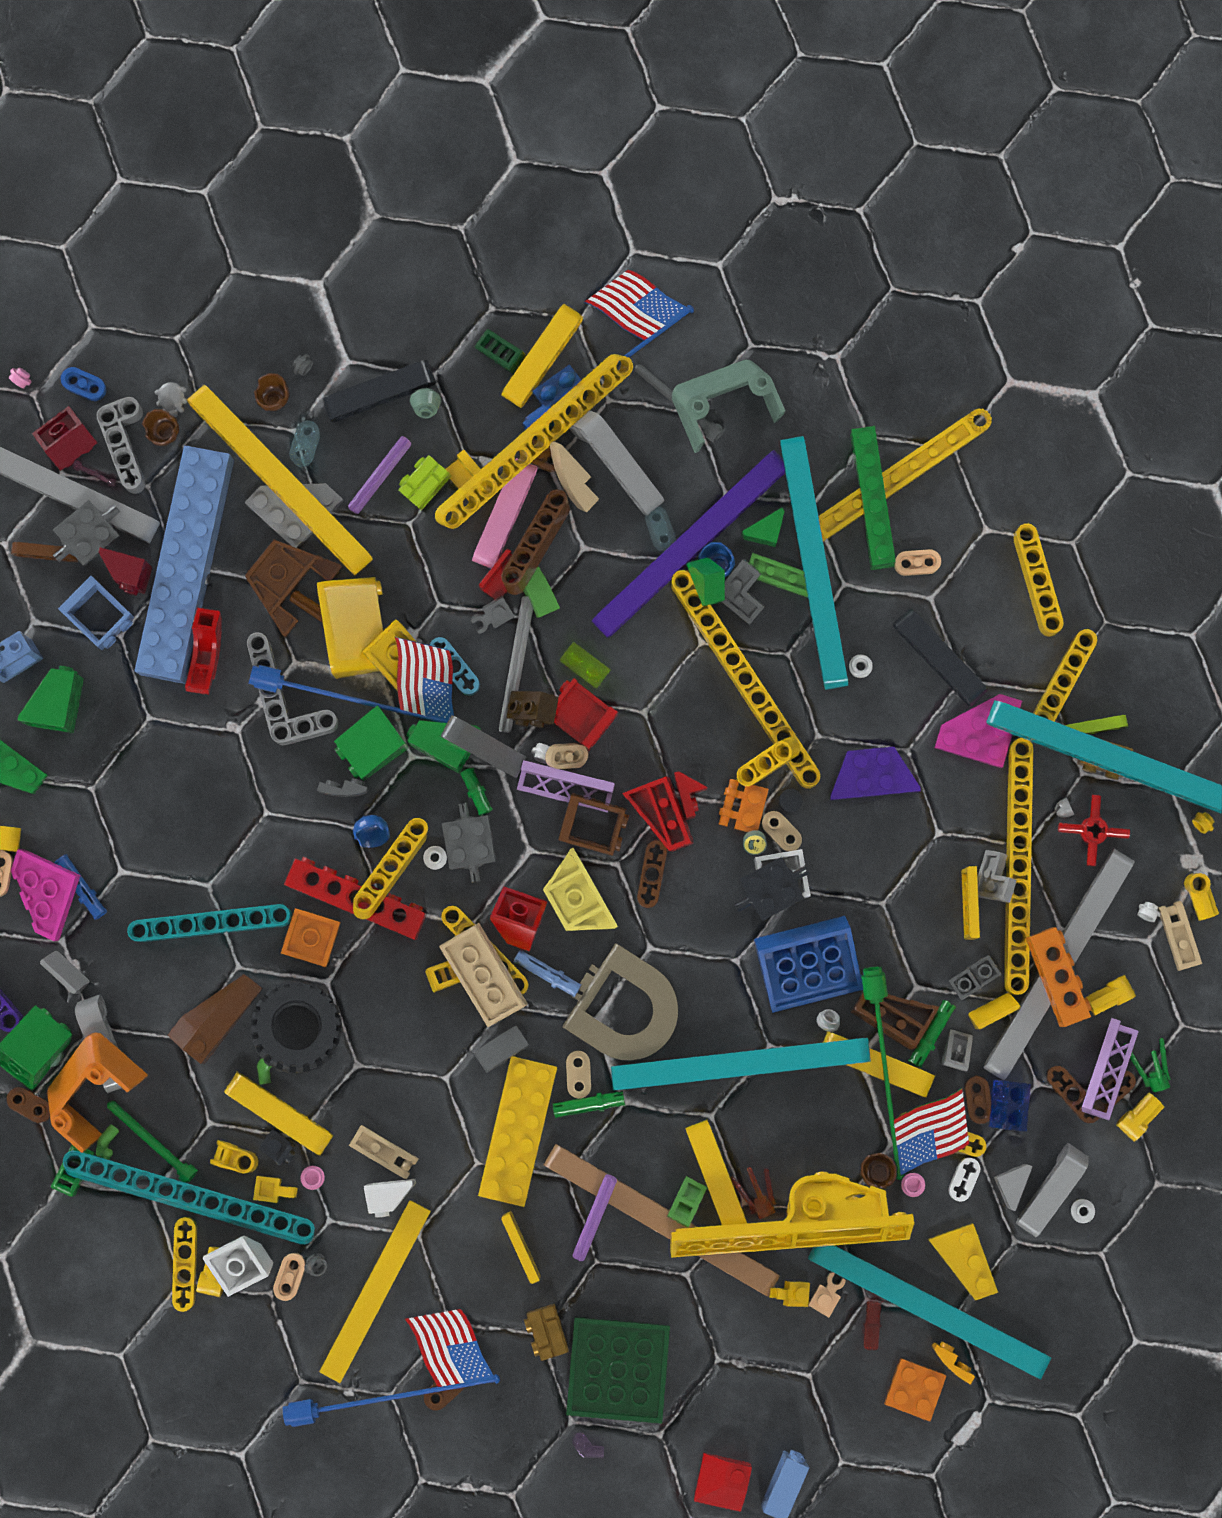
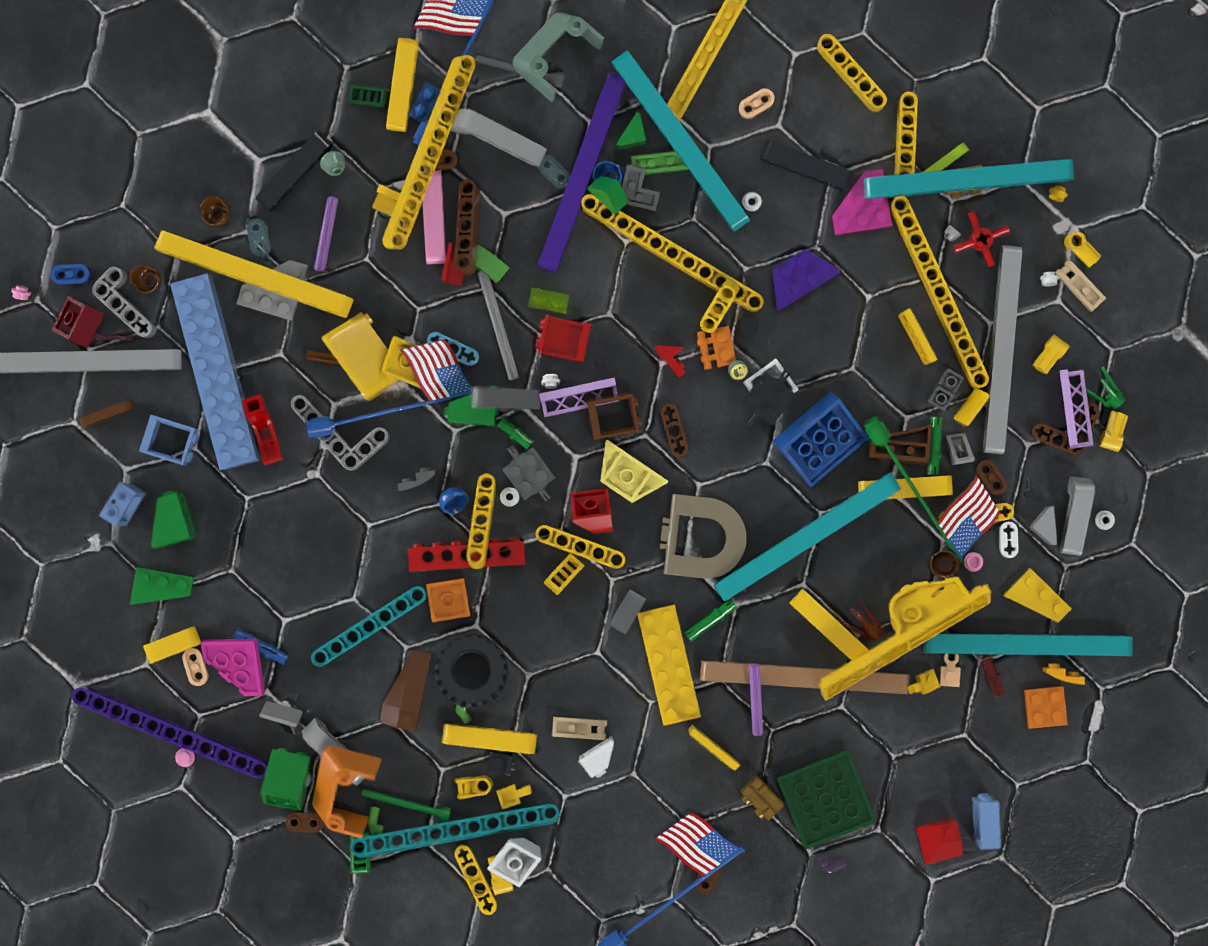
camera: 30 degrees left, 5 degrees up
(86, 532) = (131, 385): dark grey plate -> none
(127, 571) = (176, 398): dark red slope -> none
(171, 398) = (141, 252): light grey piece -> none
(279, 573) = (288, 345): reddish brown wing -> none
(290, 1276) = (556, 850): light nougat plate -> none
(302, 365) = (227, 179): dark grey plate -> none
(312, 1177) = (537, 772): bright pink plate -> none
(319, 1267) = (571, 833): dark grey plate -> none
(370, 744) = (420, 437): green slope -> none
(375, 1291) = (623, 830): yellow tile -> none
(424, 481) = (362, 223): lime brick -> none
(483, 975) = (588, 565): tan tile -> none
(496, 612) = (464, 294): dark grey plate -> none
(532, 708) = (526, 352): dark brown brick -> none
(547, 973) = (634, 540): medium blue pin -> none
(561, 756) = (569, 374): tan plate -> none
(572, 477) = (471, 166): tan slope -> none
(578, 1074) = (692, 602): tan plate -> none
(662, 812) = (659, 381): red wedge -> none
(687, 1202) = (817, 655): bright green slope -> none
(781, 831) = (753, 352): tan plate -> none
(828, 1020) = (855, 473): white plate -> none
(873, 498) = (700, 70): green arch -> none
(990, 879) = (925, 314): light grey plate -> none
(1010, 1105) = (1016, 470): clear blue brick -> none
(1038, 946) = (982, 344): orange brick -> none

